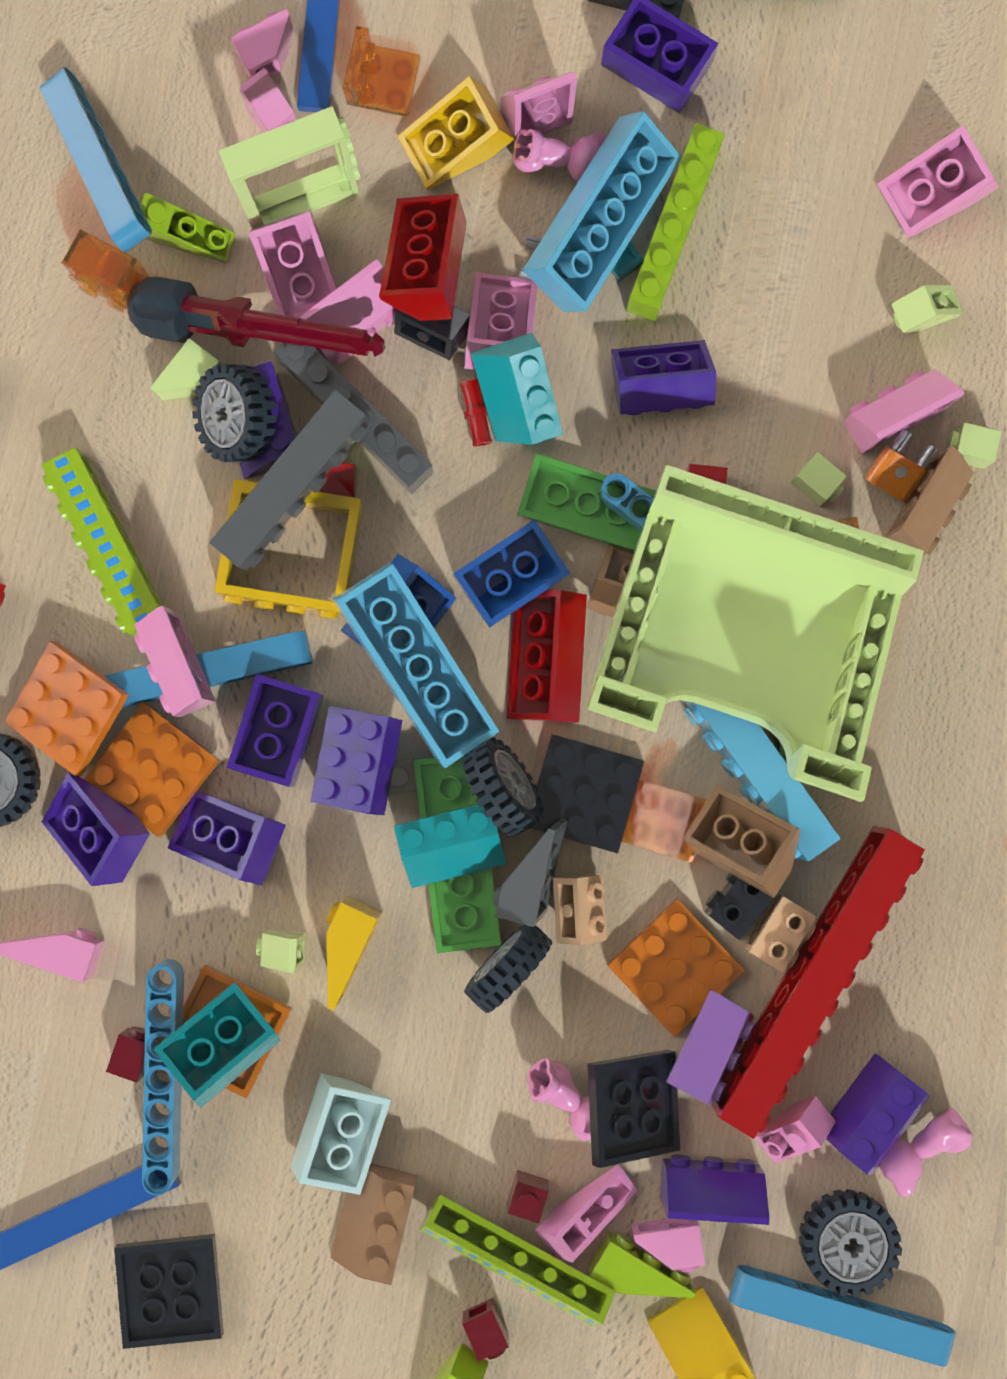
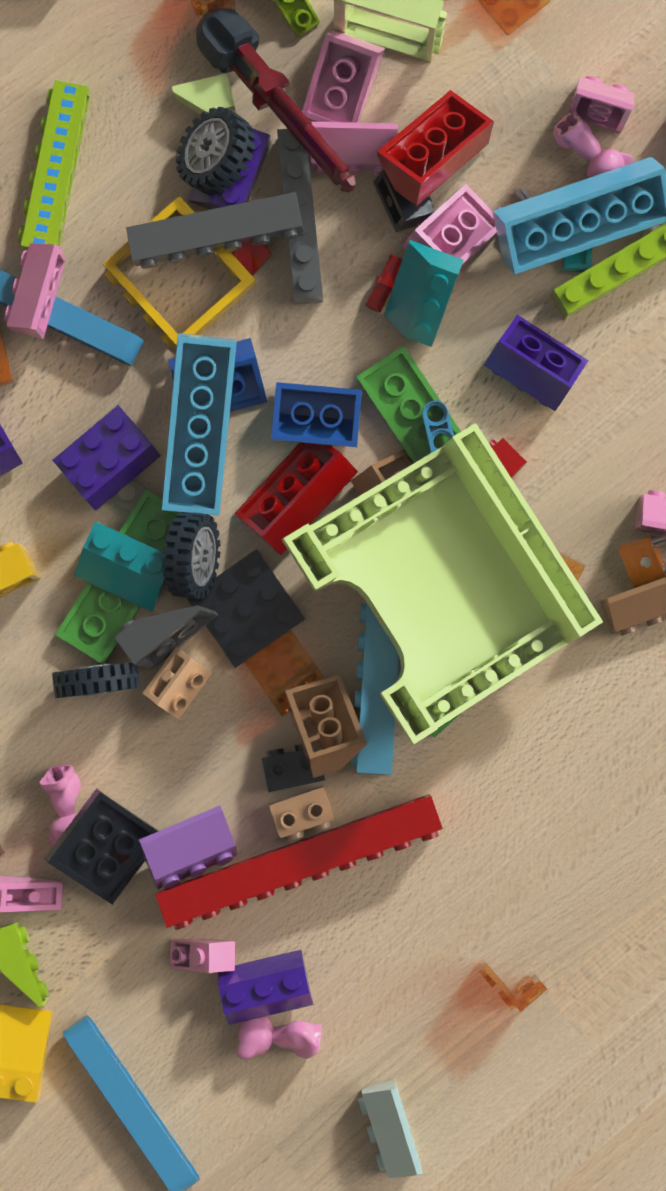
camera: 40 degrees right, 0 degrees up
(275, 731) = (67, 392): dark purple brick -> none
(456, 134) = (530, 76): yellow slope -> none
(672, 1242) = (56, 962): bright pink slope -> none
(675, 967) = (211, 774): orange plate -> none
(714, 1190) = (113, 946): dark purple slope -> none
(819, 480) = (586, 522): yellowish green brick -> none
(867, 1259) = (178, 1084): wheel -> none

